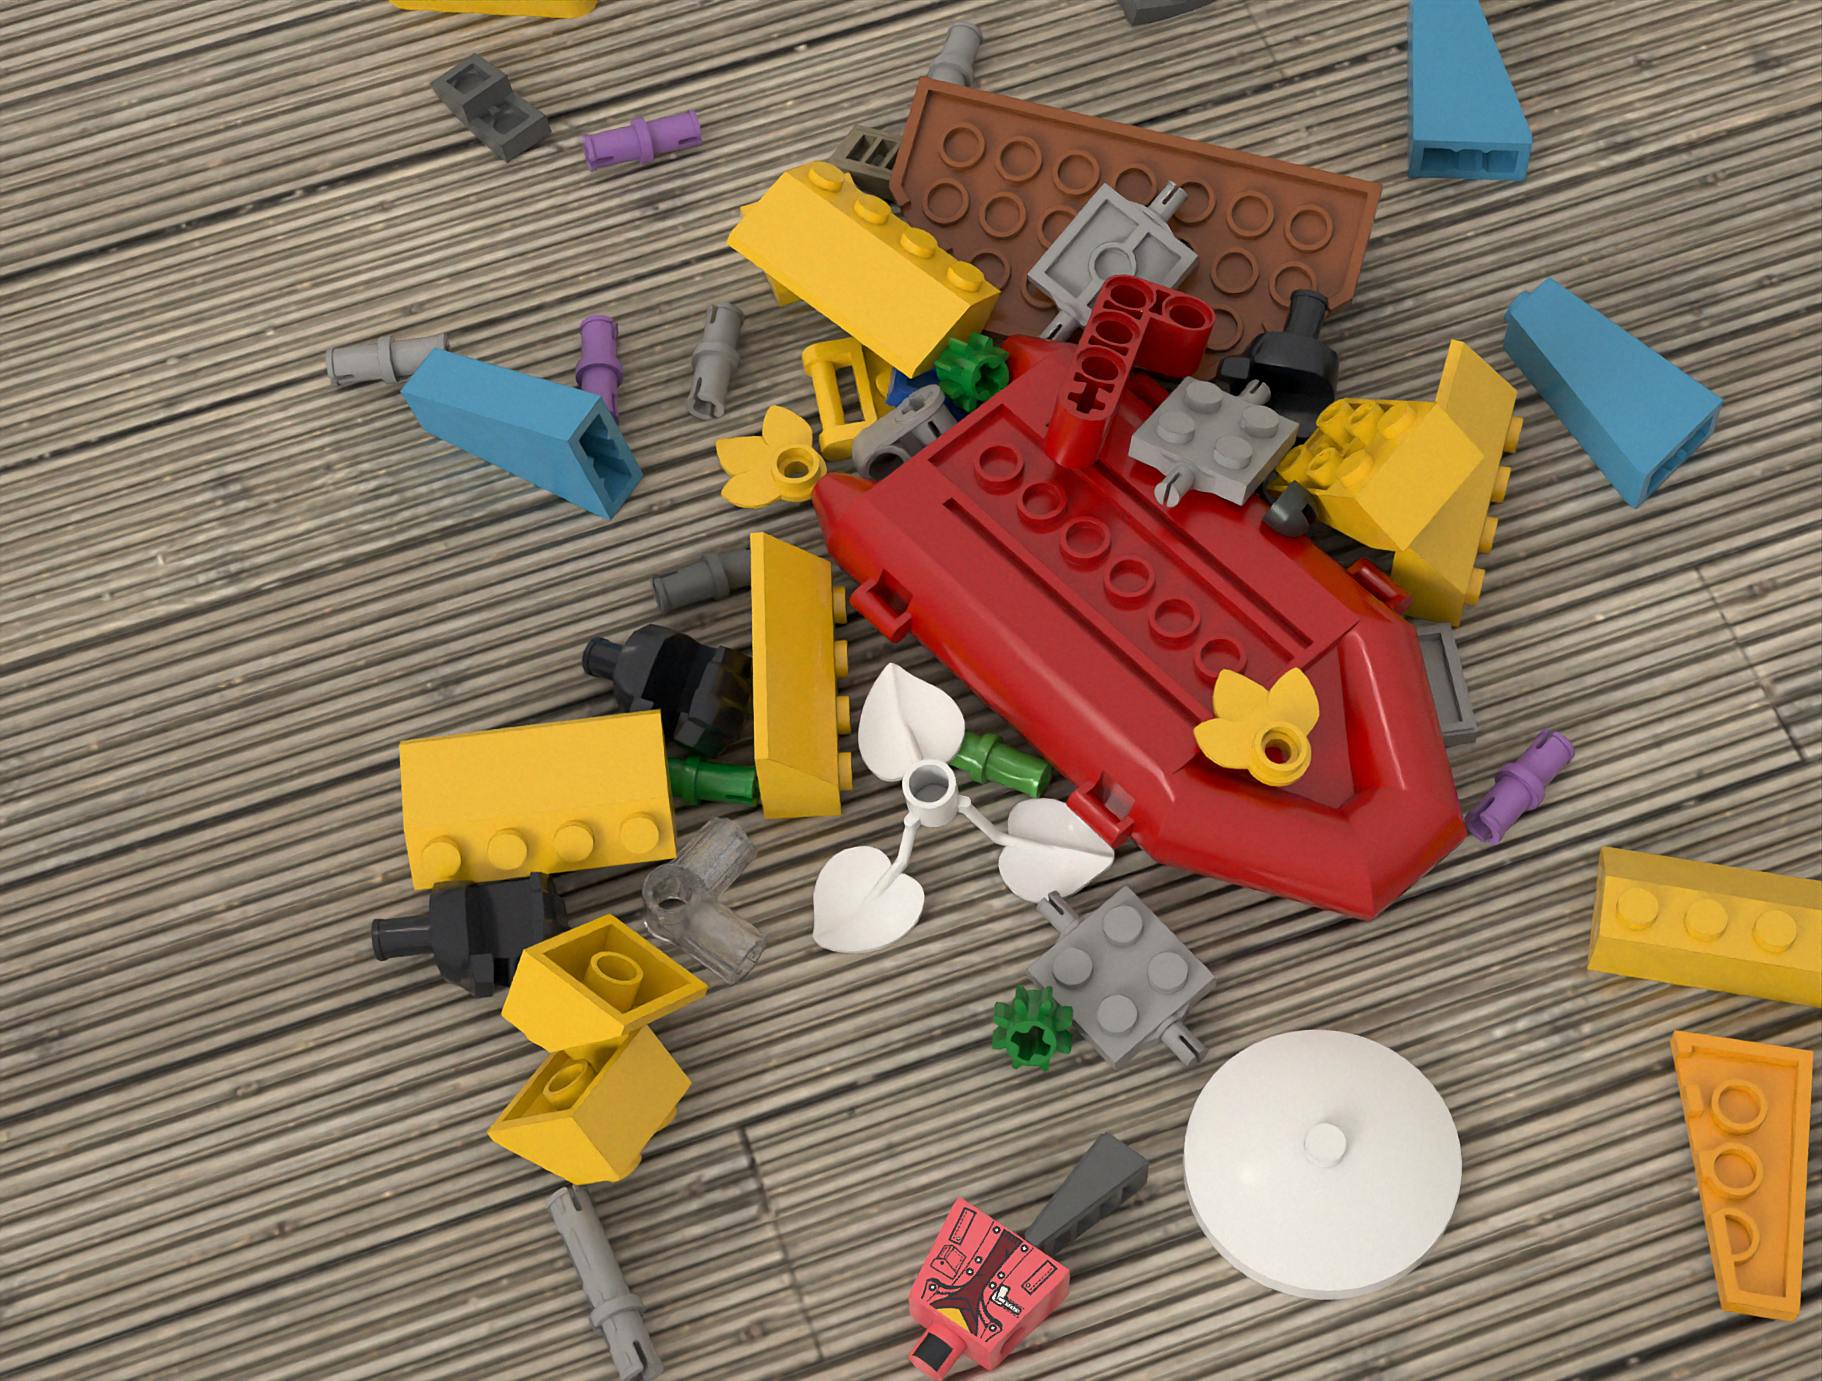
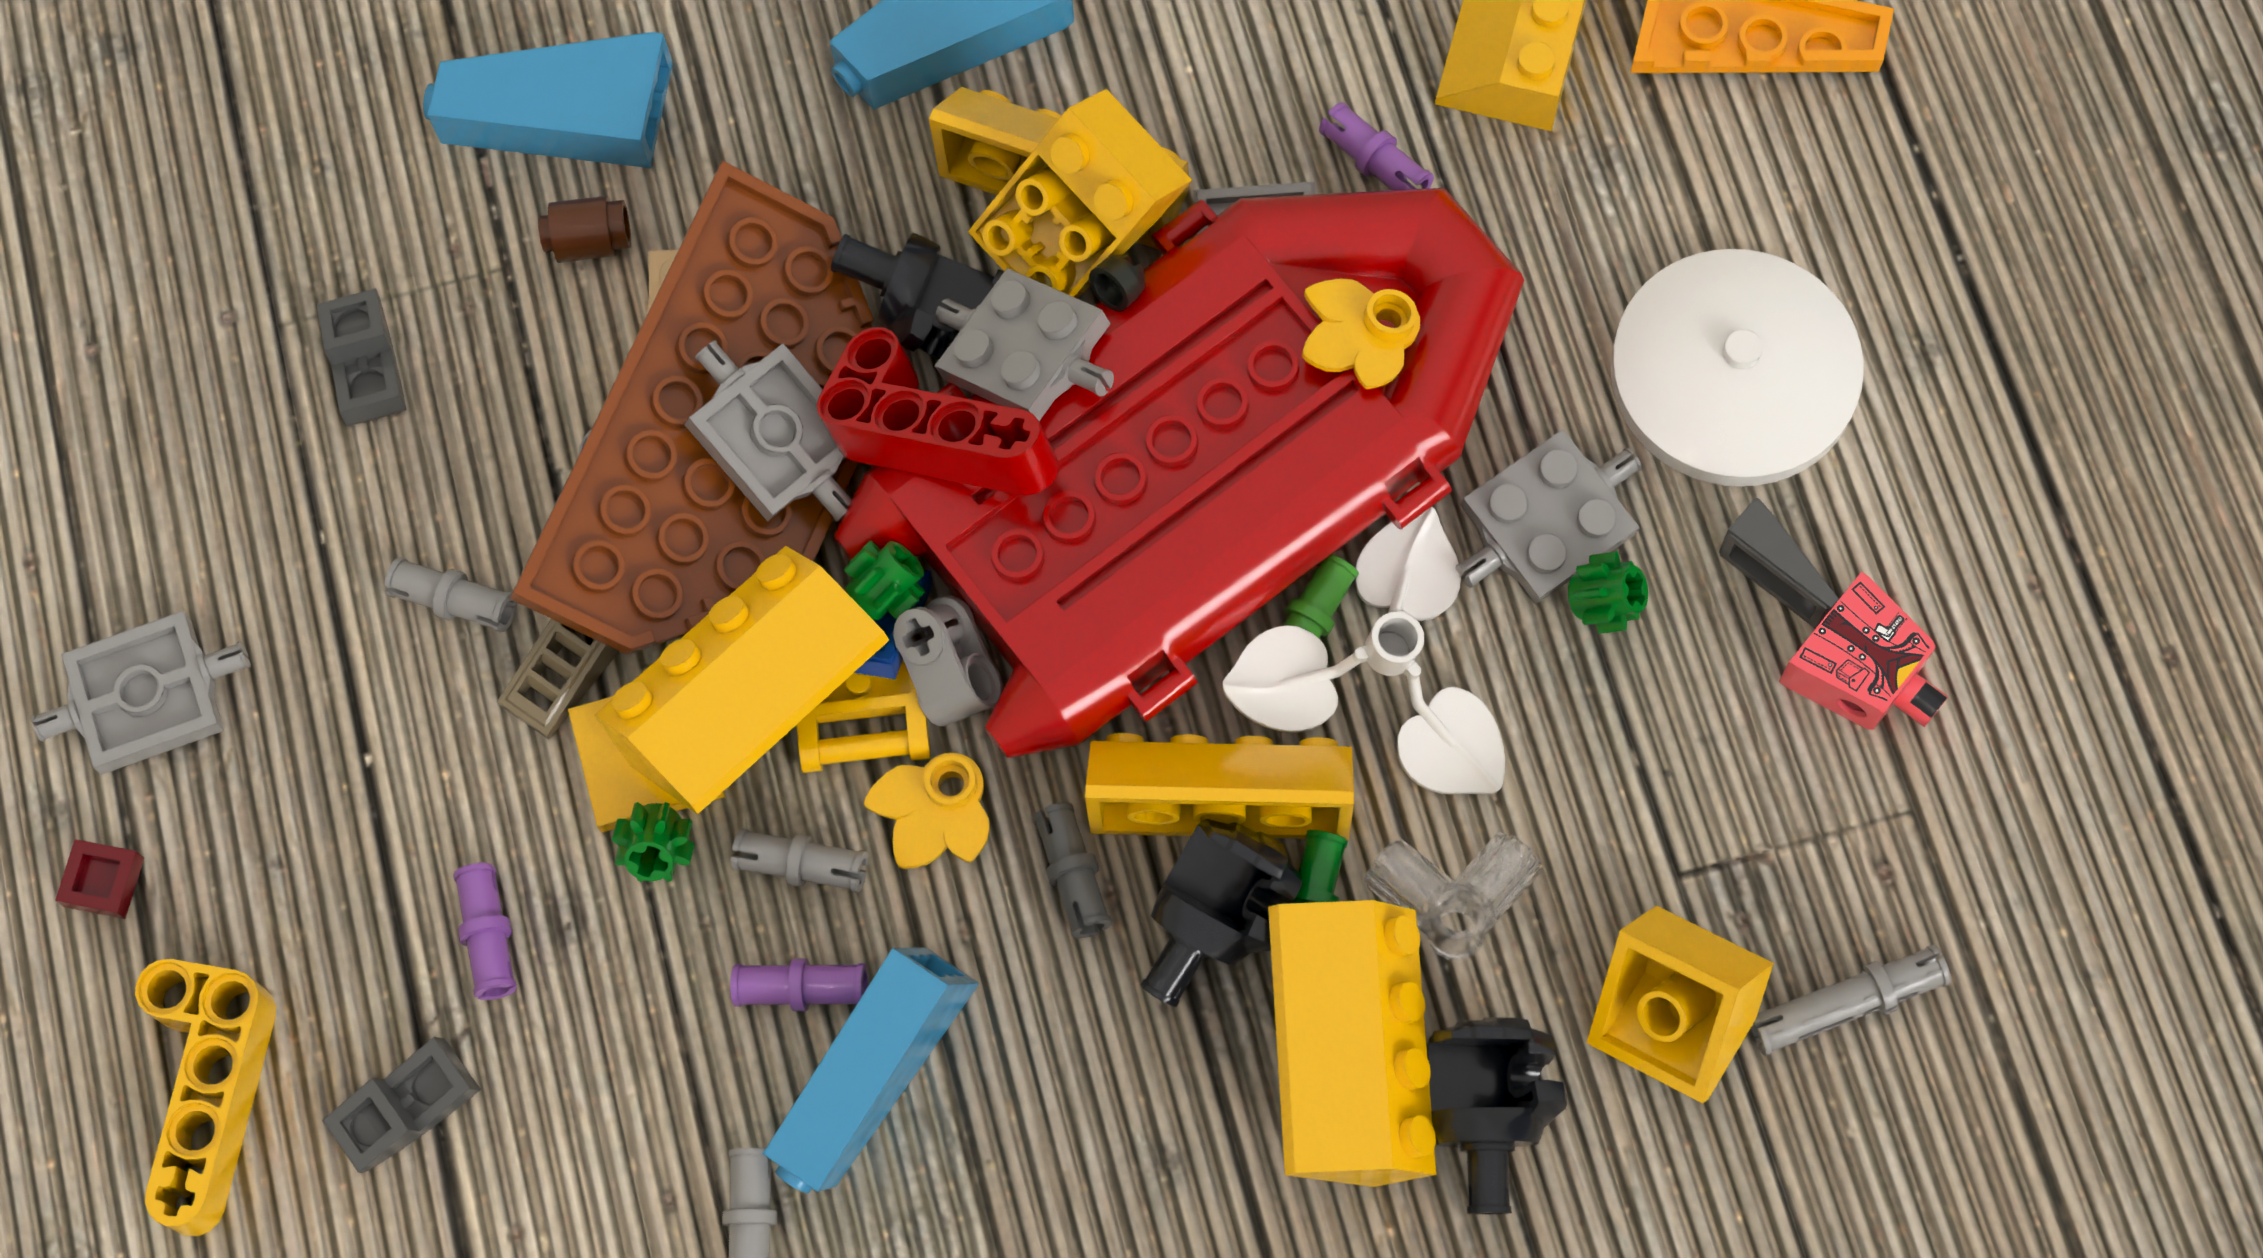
camera: 85 degrees left, 10 degrees up
(595, 986) = (1577, 975): yellow slope -> none
(708, 244) = (653, 842): none -> green gear
(1324, 123) = (585, 228): none -> reddish brown brick

